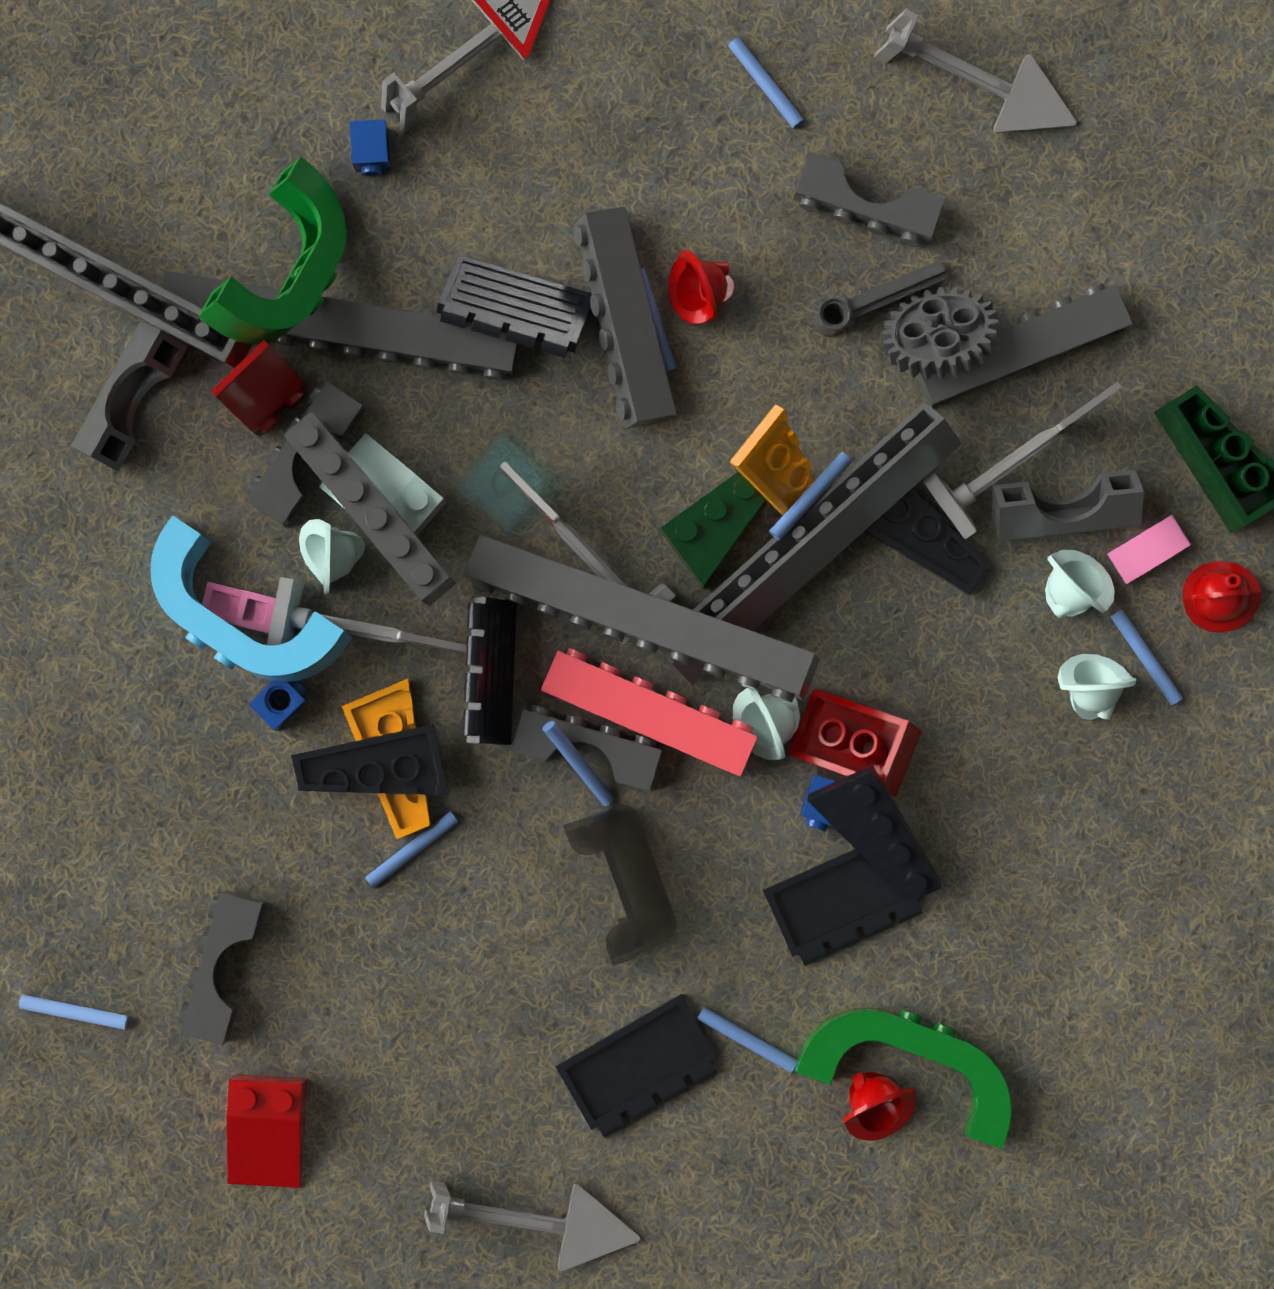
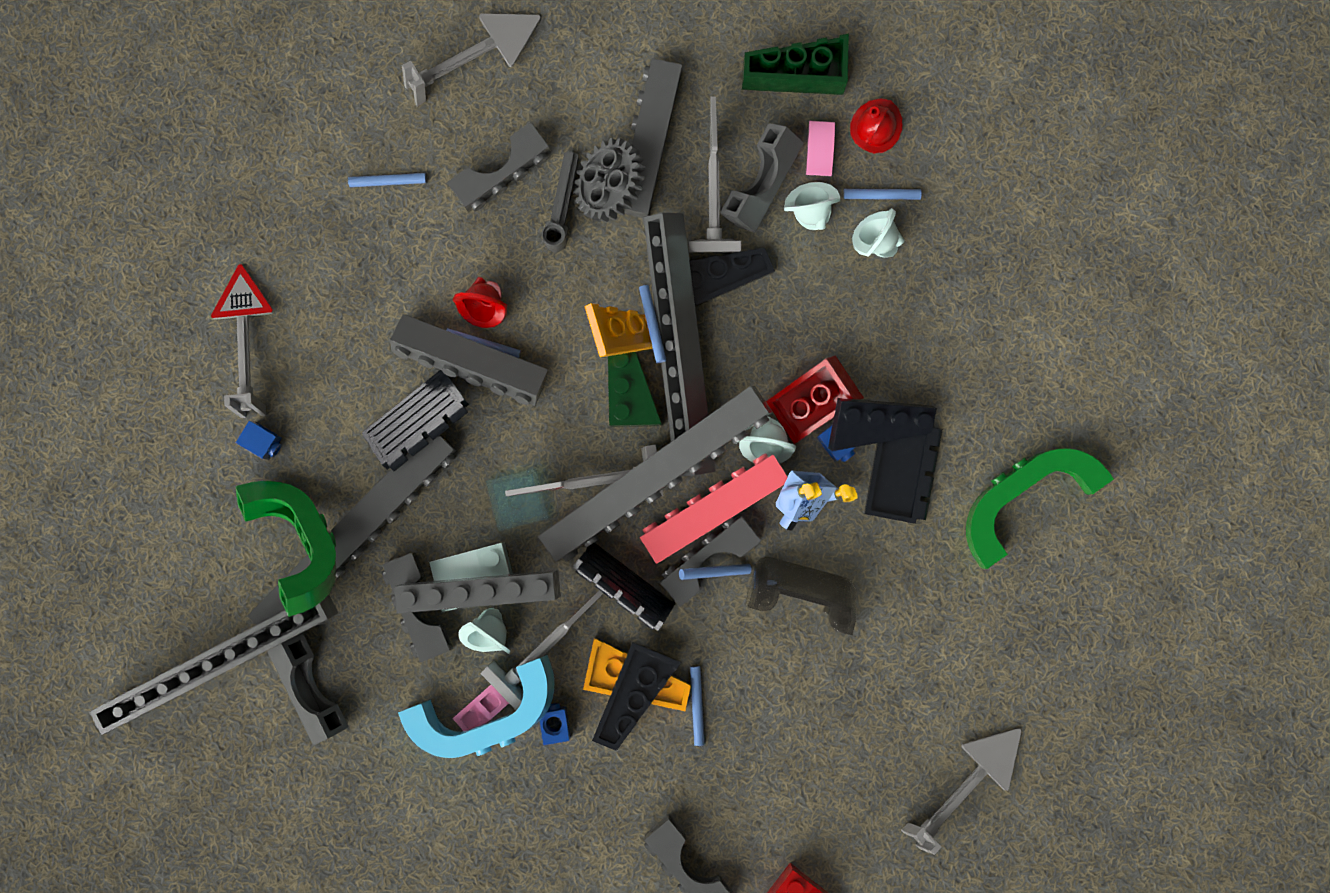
camera: 55 degrees left, 0 degrees up
(260, 389) = (359, 607): red slope -> none
(636, 1063) = (915, 659): black hinge -> none
(737, 807) = (806, 495): none -> light blue torso
(747, 1039) = (946, 584): medium blue bar -> none
(877, 1106) = (1038, 534): red helmet -> none

